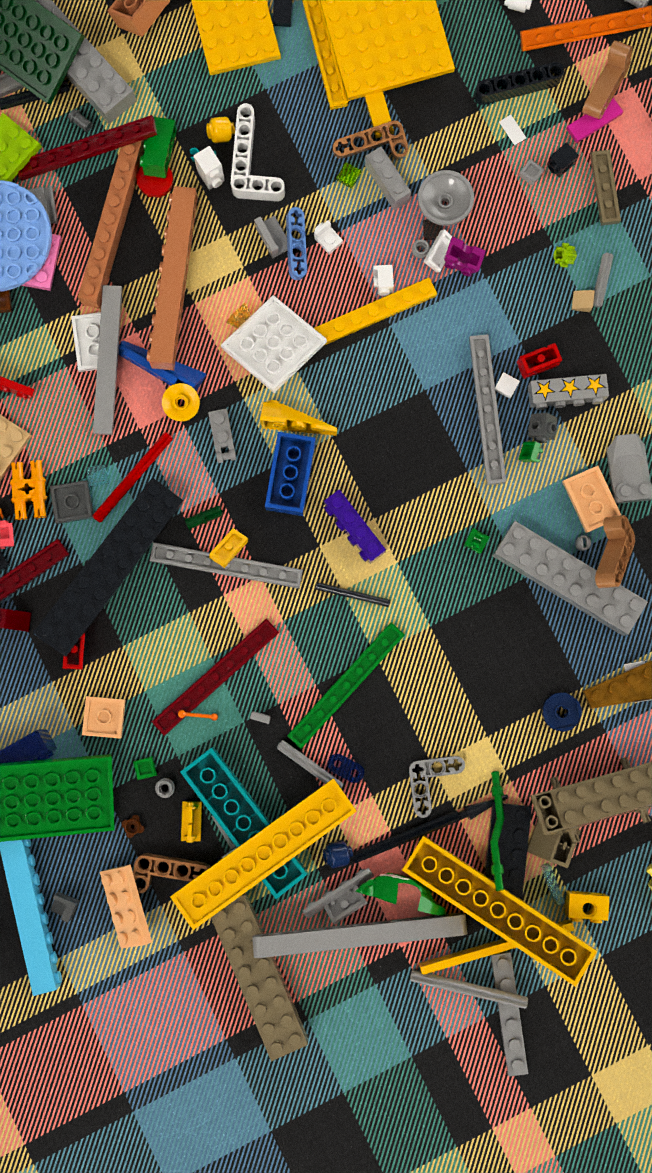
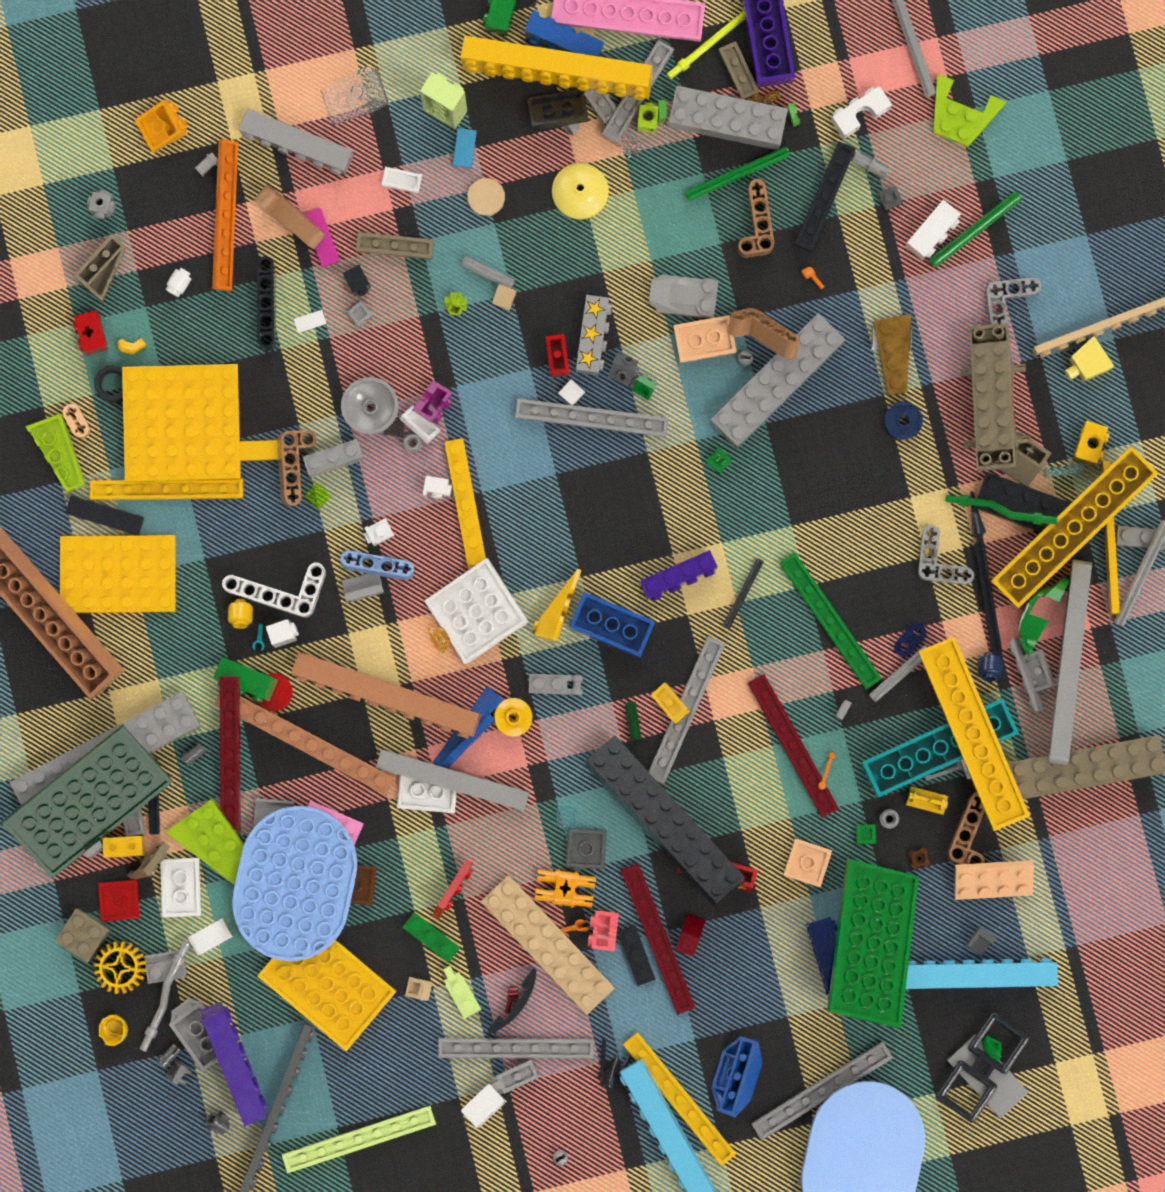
camera: 80 degrees left, 0 degrees up
(132, 477) = (576, 783): red axle -> none

